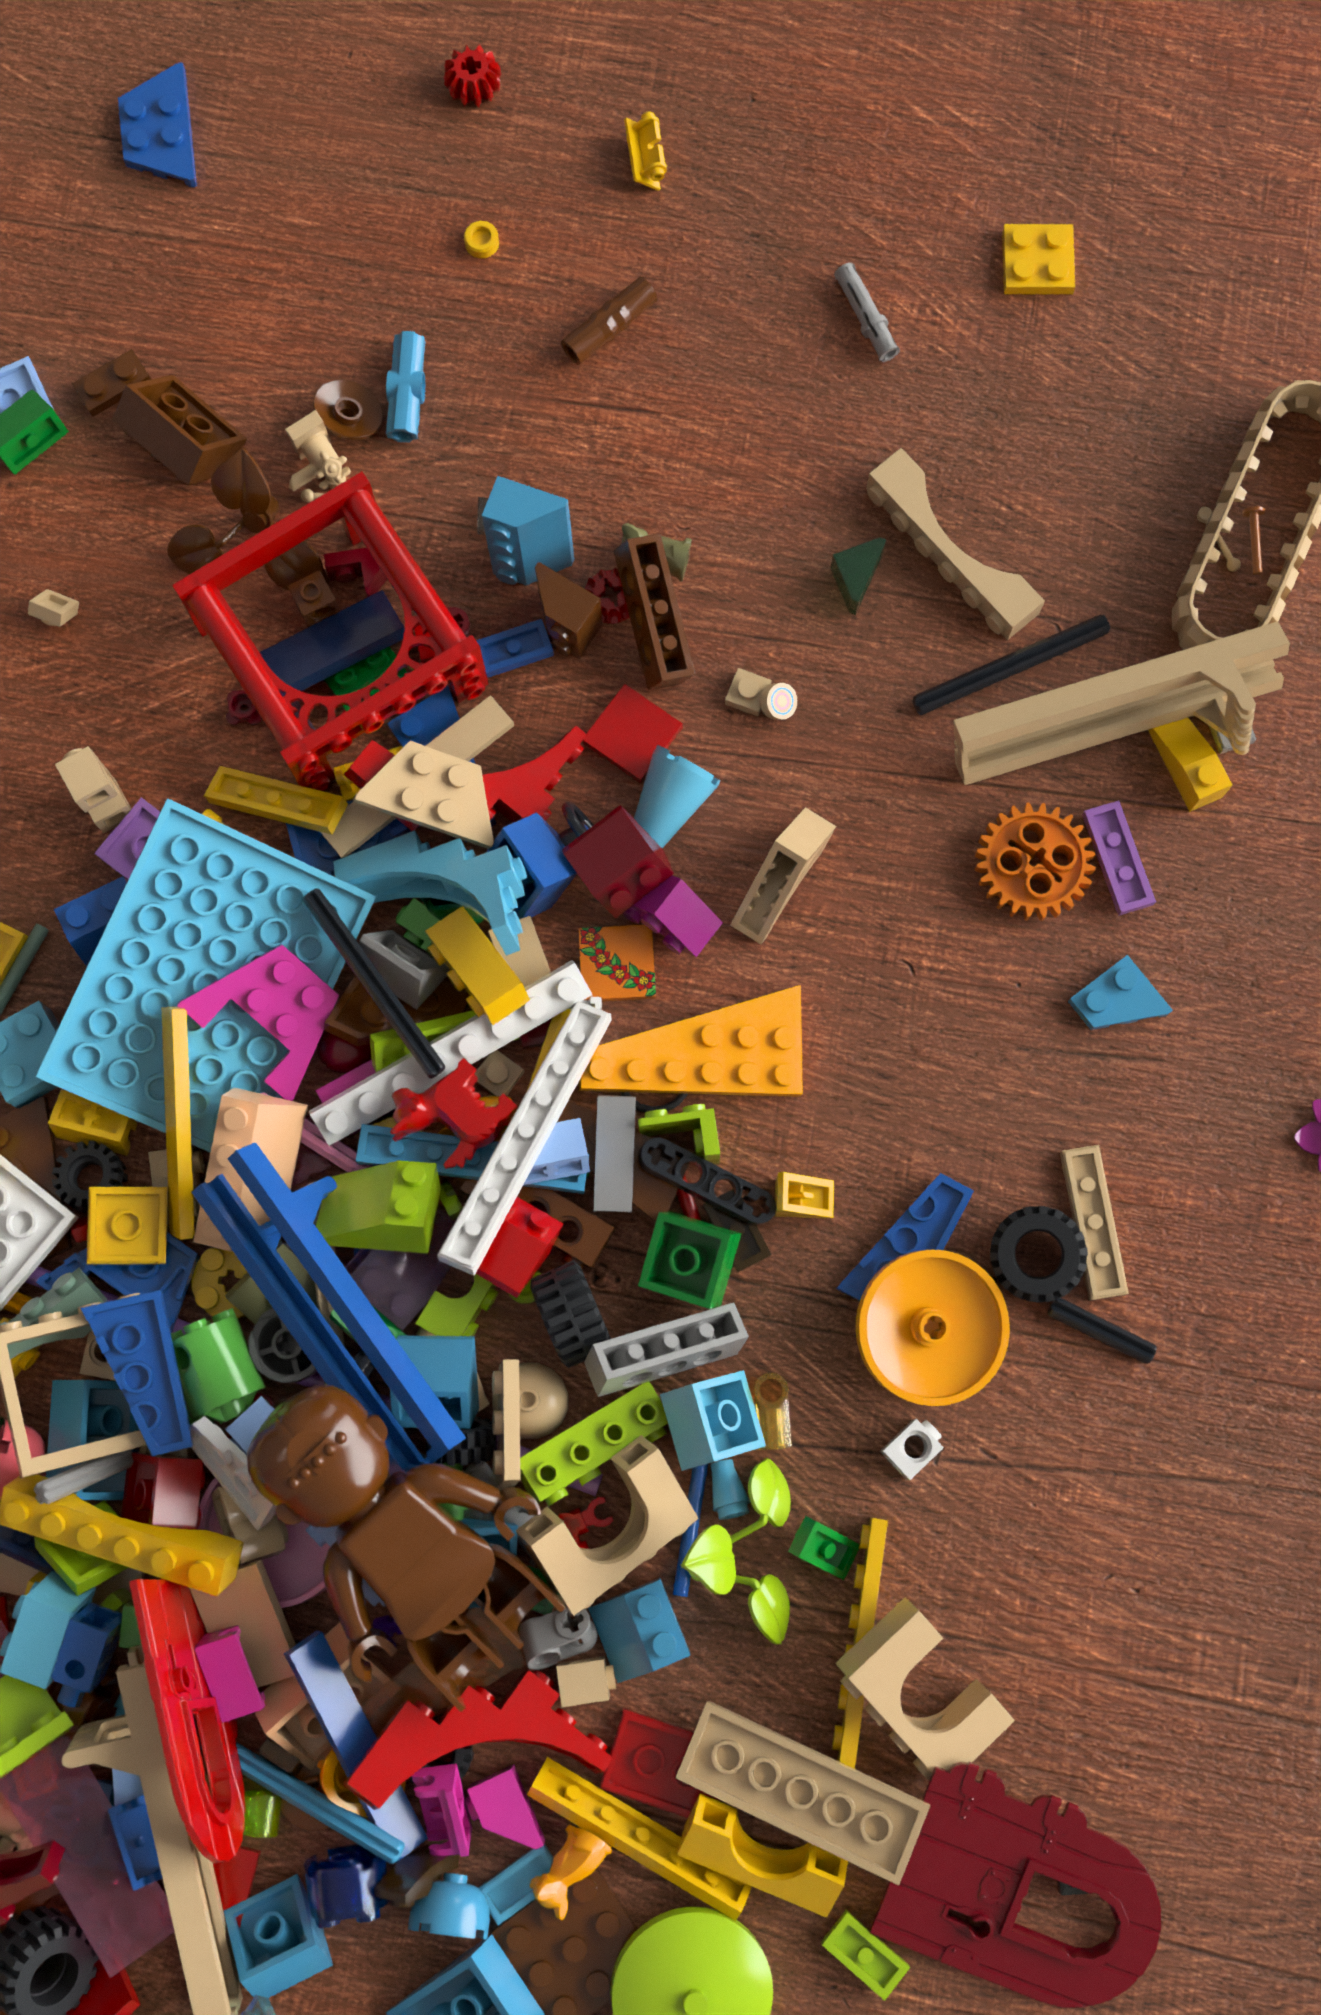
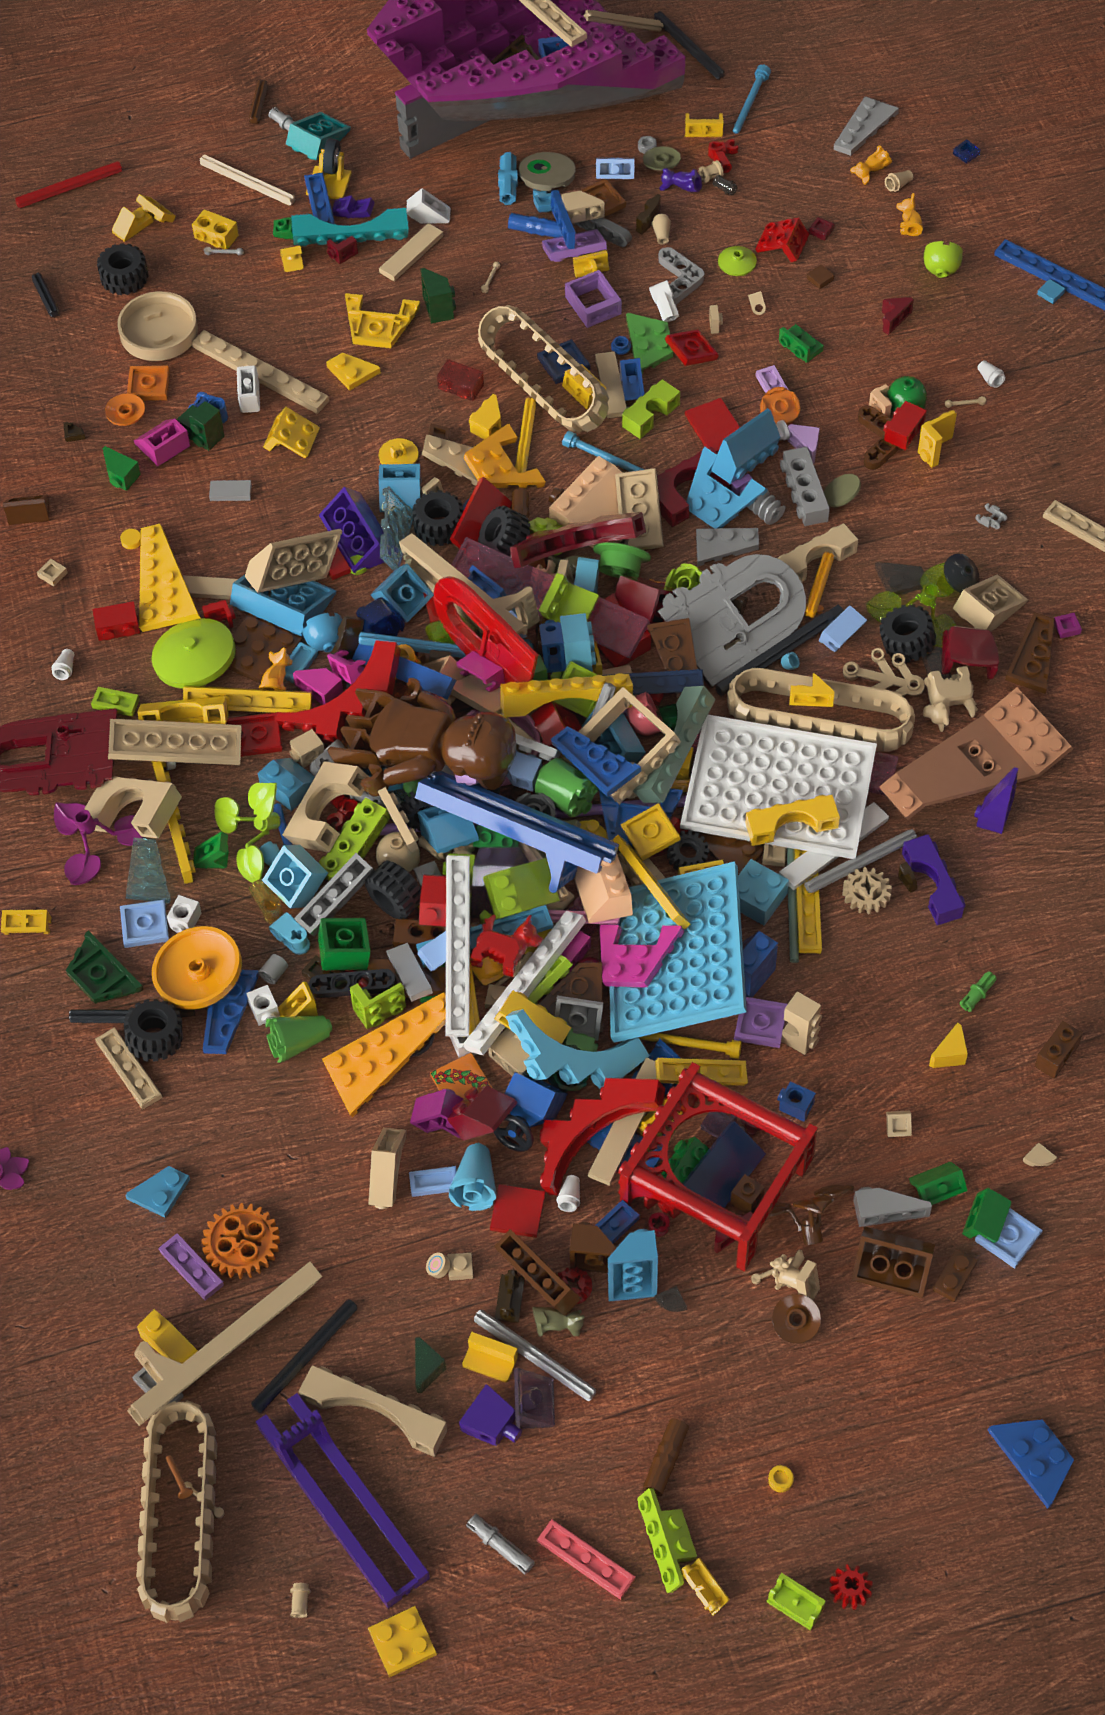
camera: 155 degrees right, 20 degrees down
(53, 508) = (939, 1183): none -> green panel
(150, 505) = (884, 1206): none -> light grey slope
(164, 691) = (798, 1110): none -> blue brick
(374, 983) = (583, 986): black axle -> none
(405, 387) = (770, 1352): dark azure piece -> none
(432, 792) = (607, 1095): tan wing -> none
(500, 1340) = (428, 869): none -> light grey plate
(544, 91) = (796, 1601): none -> lime hinge
(551, 719) = (569, 1196): none -> white cone
(657, 226) = (668, 1538): none -> lime bracket
(706, 613) = (509, 1297): none -> dark brown hinge
(708, 527) = (535, 1355): none -> light grey axle
(727, 832) = (431, 1181): none -> light blue tile
(741, 464) = (533, 1400): none -> slope
(765, 1342) = (290, 934): none -> medium azure piece
(767, 548) = (490, 1357): none -> yellow panel
(769, 254) = (586, 1559): none -> coral tile
(807, 465) = (490, 1418): none -> dark purple torso
(812, 1282) = (273, 969): none -> light grey beam
(824, 1143) = (296, 1034): none -> bright green cone
(848, 1239) = (259, 998): none -> white brick
(942, 1559) = (146, 874): none -> clear light blue wing
(977, 1471) = (144, 923): none -> light blue tile
(1034, 525) = (313, 1425): none -> dark purple piece
(1043, 1632) = (73, 816): none -> magenta plant
(1081, 1410) = (100, 972): none -> dark green wing
(1141, 365) = (299, 1599): none -> tan pin
(1169, 1556) = (25, 921): none -> yellow hinge

